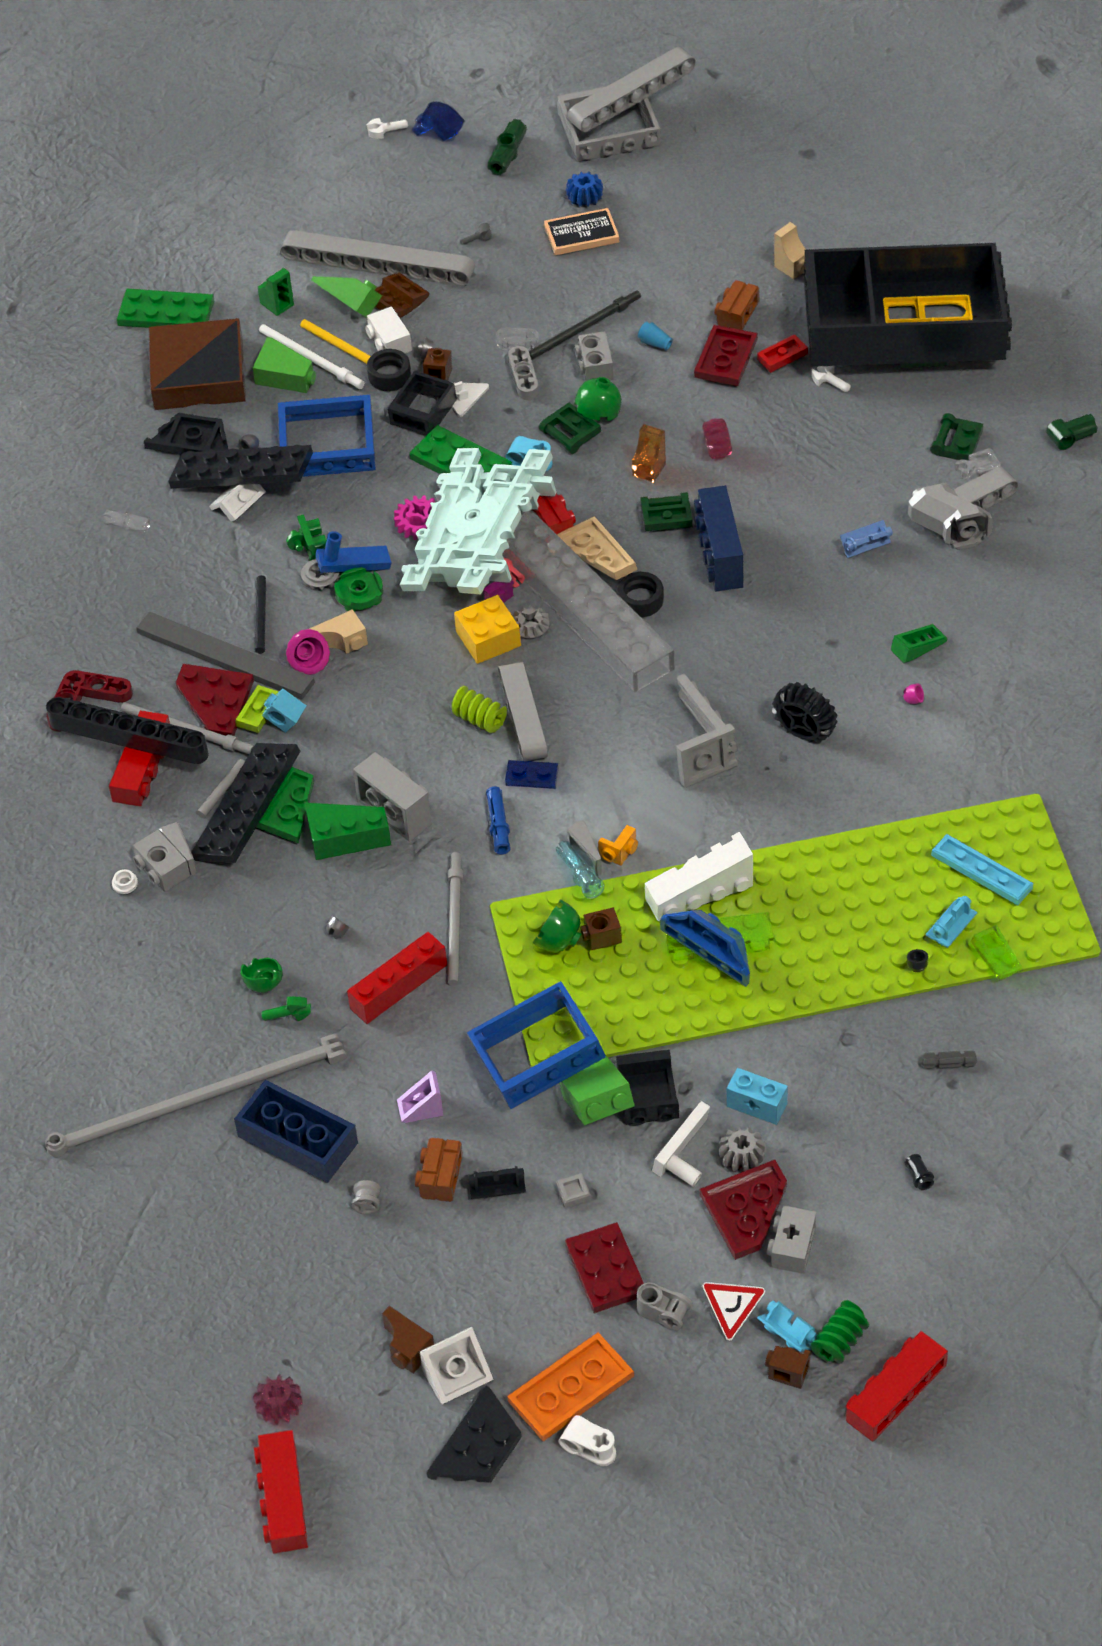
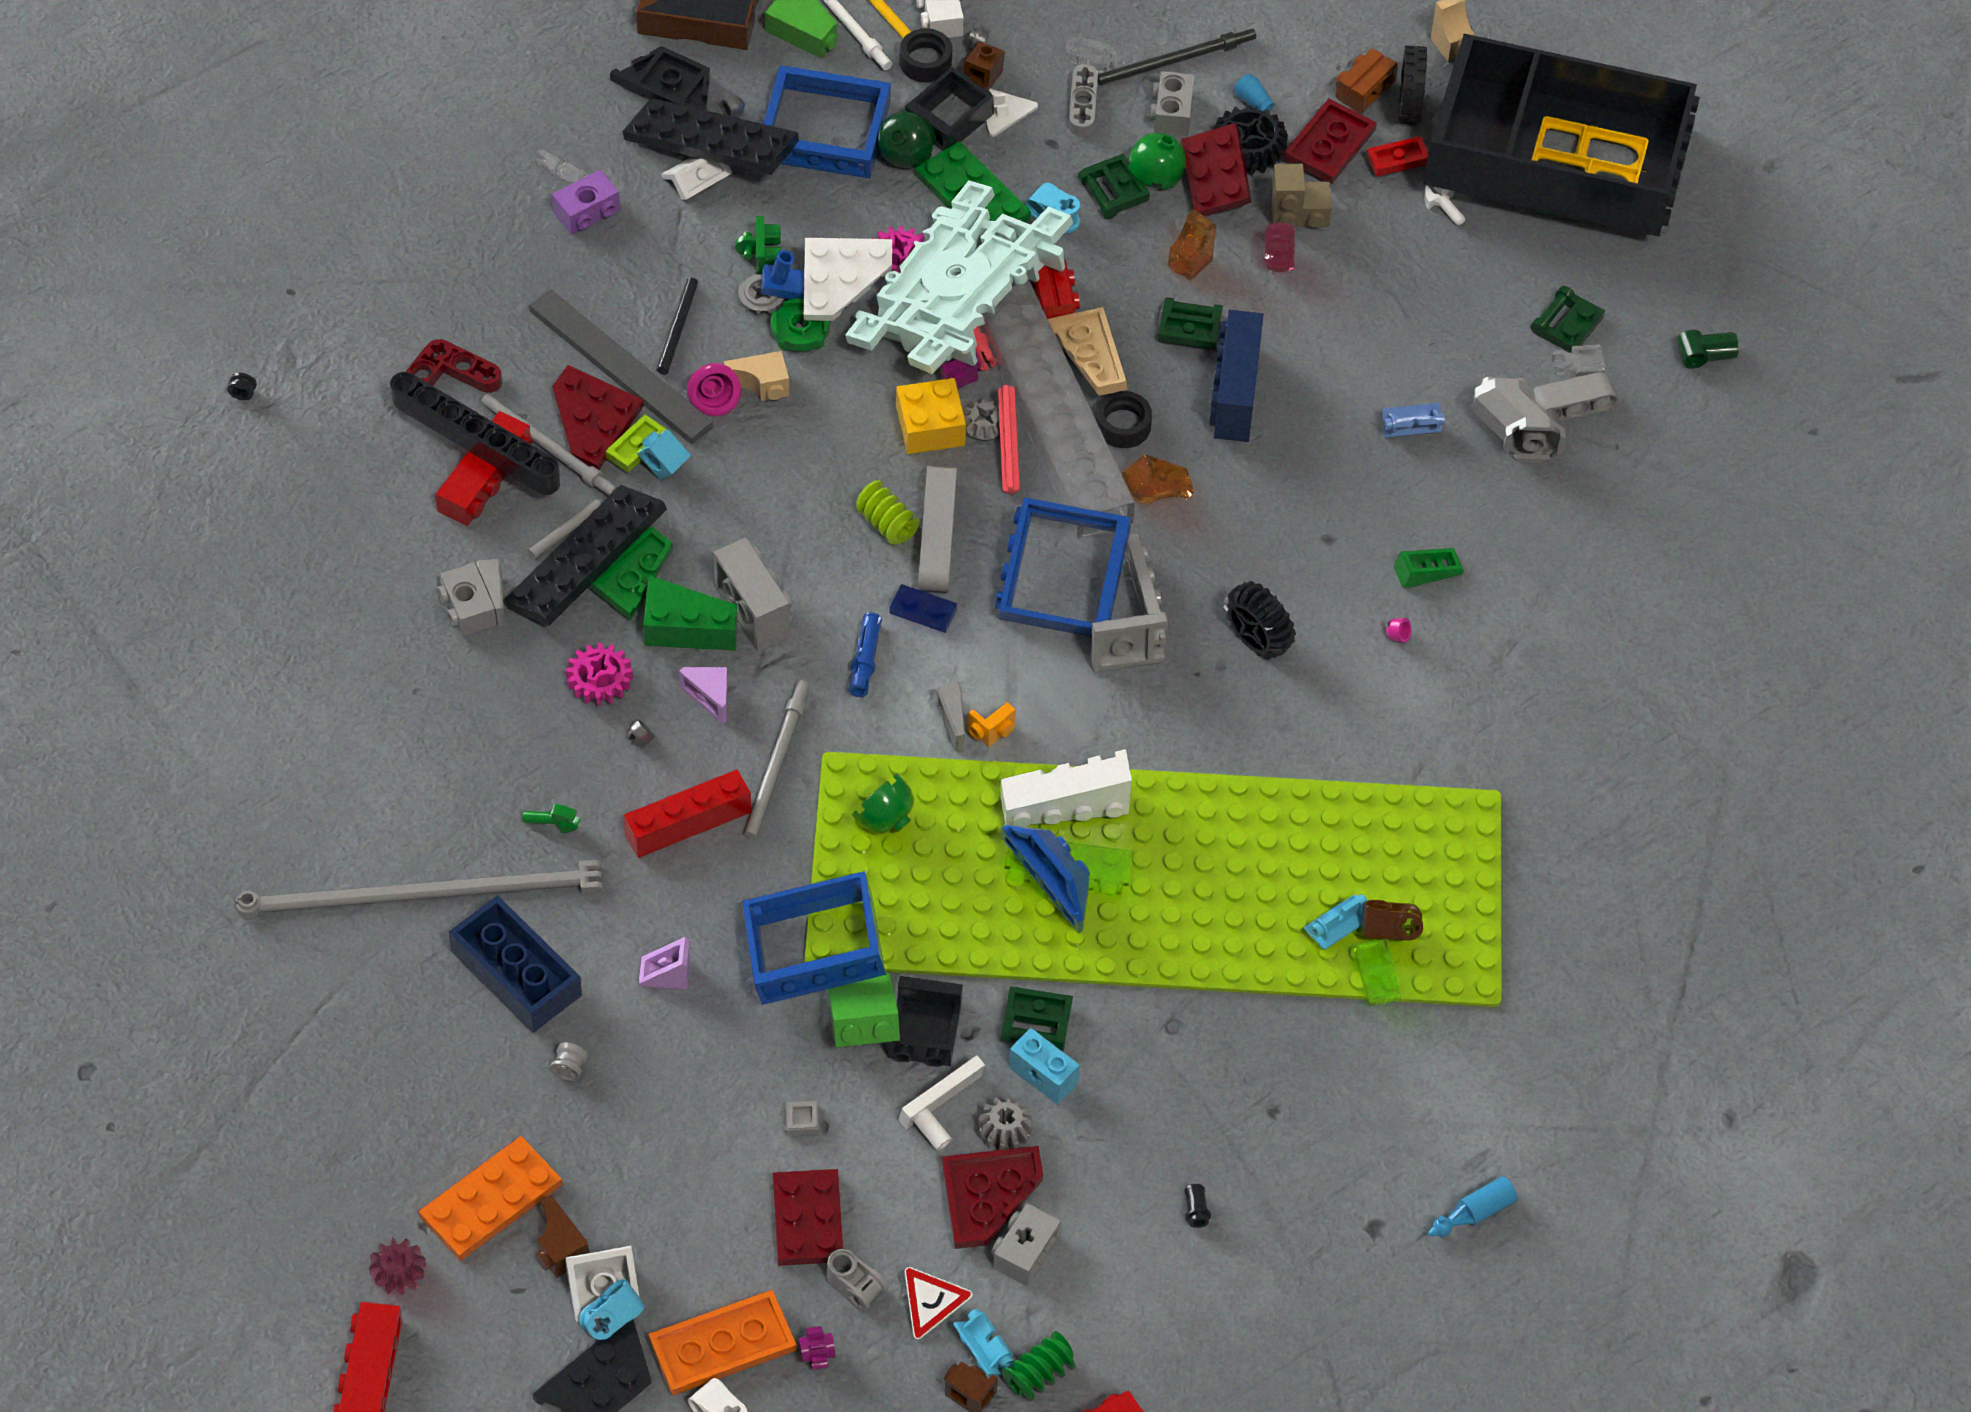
camera: 10 degrees right, 5 degrees up
(127, 877) = (417, 607): white plate -> none
(156, 540) = (586, 202): none -> medium lavender brick
(262, 974) = (537, 768): green hair -> none
(288, 889) = (599, 674): none -> dark pink gear
(336, 1324) = (490, 1198): none -> orange plate
(379, 540) = (841, 273): none -> white plate
(380, 878) = (708, 688): none -> lavender slope
(396, 432) = (906, 139): none -> dark green cylinder
(440, 1169) = (661, 1052): dark orange brick -> none
(473, 1382) = (614, 1307): none -> medium azure piece
(497, 1183) = (719, 1085): black hinge -> none
(555, 631) = (1009, 439): none -> coral axle
(582, 874) = (937, 749): clear light blue pin -> none
(601, 929) = (937, 808): reddish brown brick -> none
(633, 670) = (1072, 515): none -> blue window
(647, 395) = (1216, 170): none -> dark red plate
(651, 1368) = (817, 1347): none -> magenta gear
(663, 369) = (1260, 134): none -> black gear
(683, 631) = (1157, 479): none -> clear orange arch
(718, 401) = (1299, 201): none -> dark tan brick
(735, 1053) = (1038, 1009): none -> dark green plate
(776, 296) = (1412, 83): none -> black tyre
(917, 960) = (1282, 956): black hinge -> none
(949, 1059) = (1279, 1083): dark grey axle -> none
(982, 869) = (1398, 866): medium azure tile -> none
(989, 910) = (1387, 920): none -> reddish brown piece

